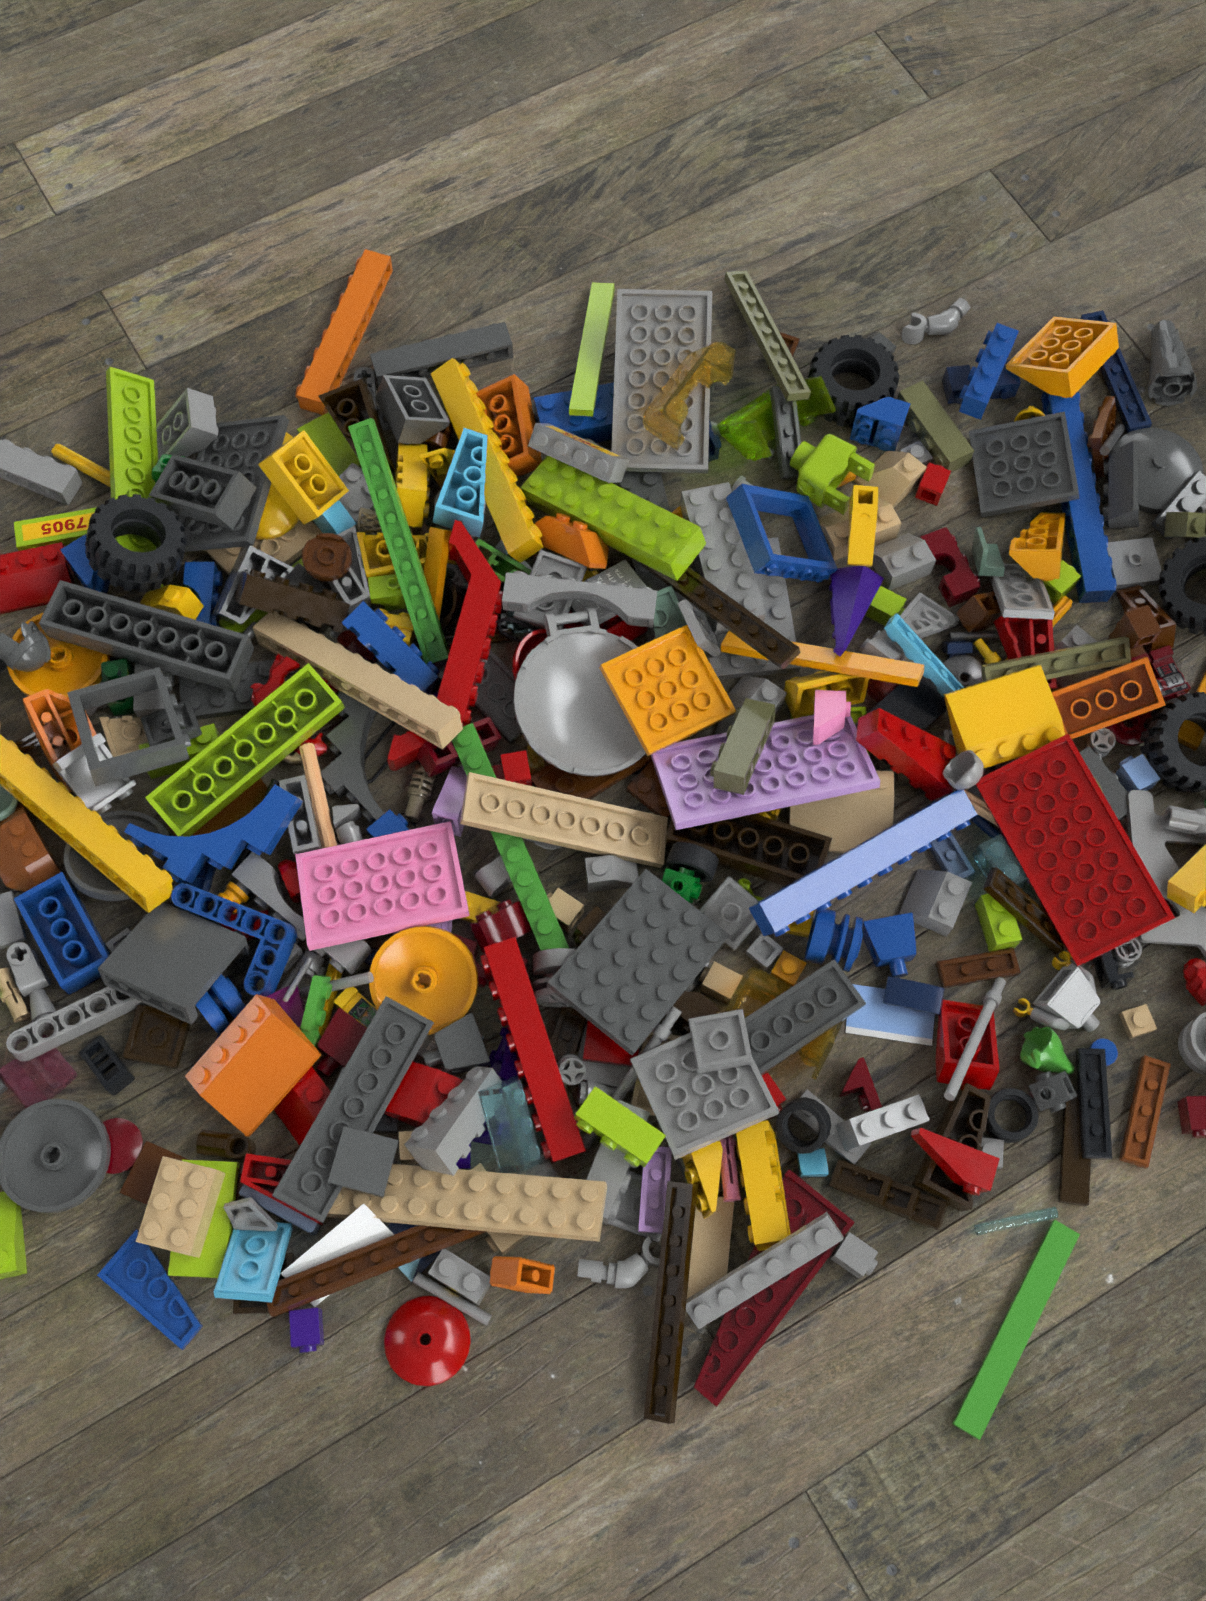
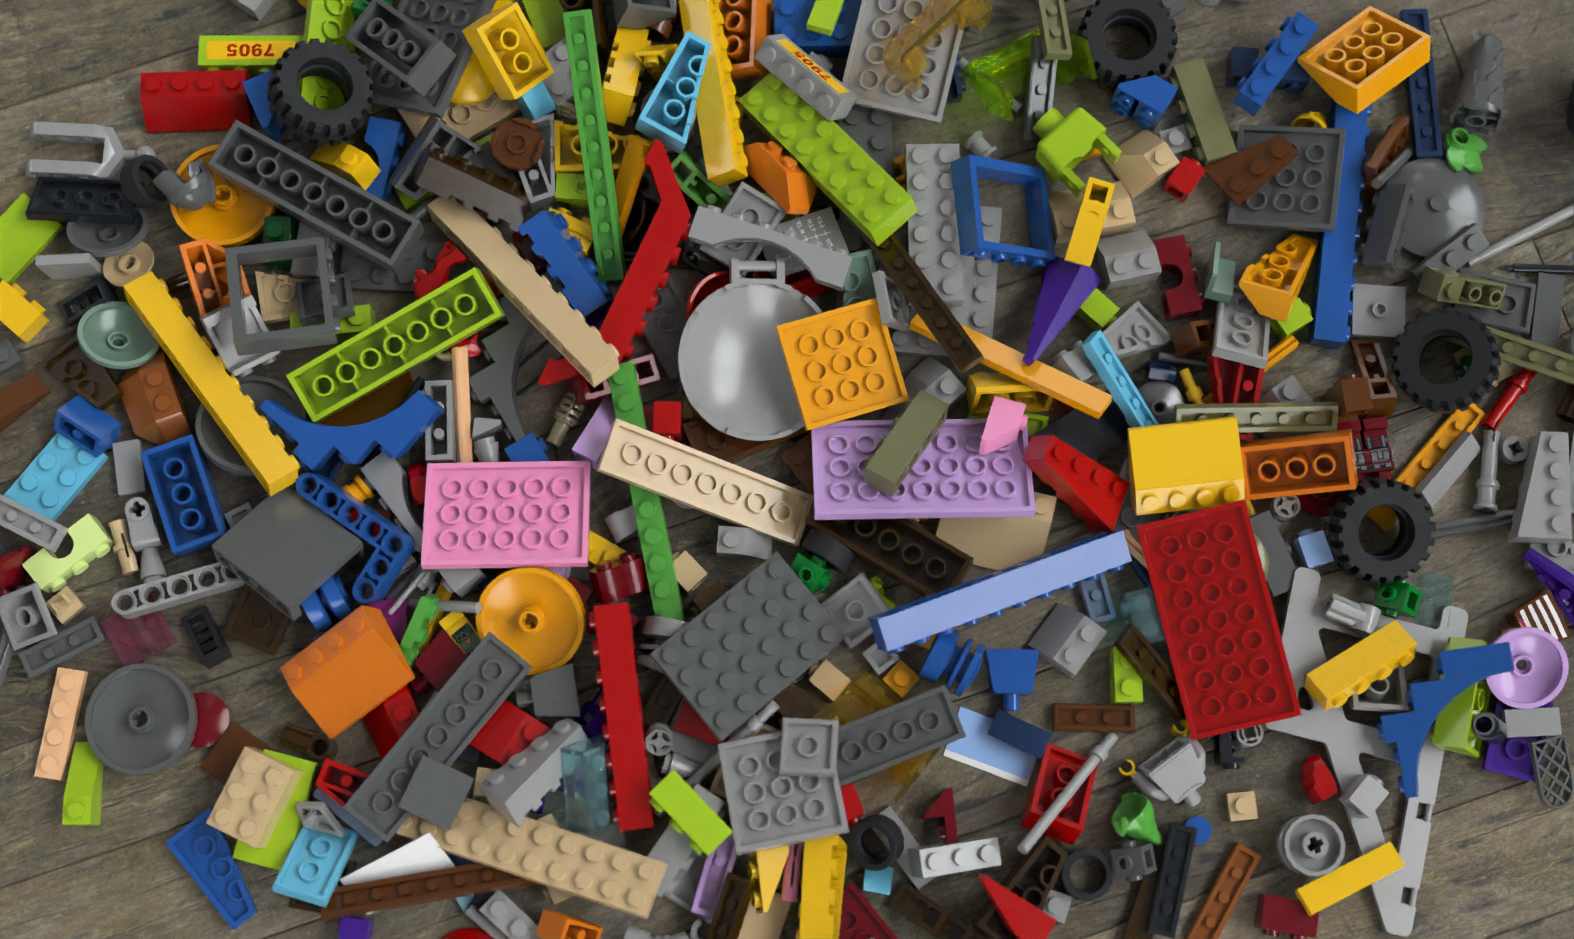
camera: 10 degrees right, 10 degrees up
(964, 770) = (1127, 514): light grey hair -> none
(990, 462) = (1251, 168): none -> reddish brown wing
(1168, 417) = (1464, 150): none -> bright green plate

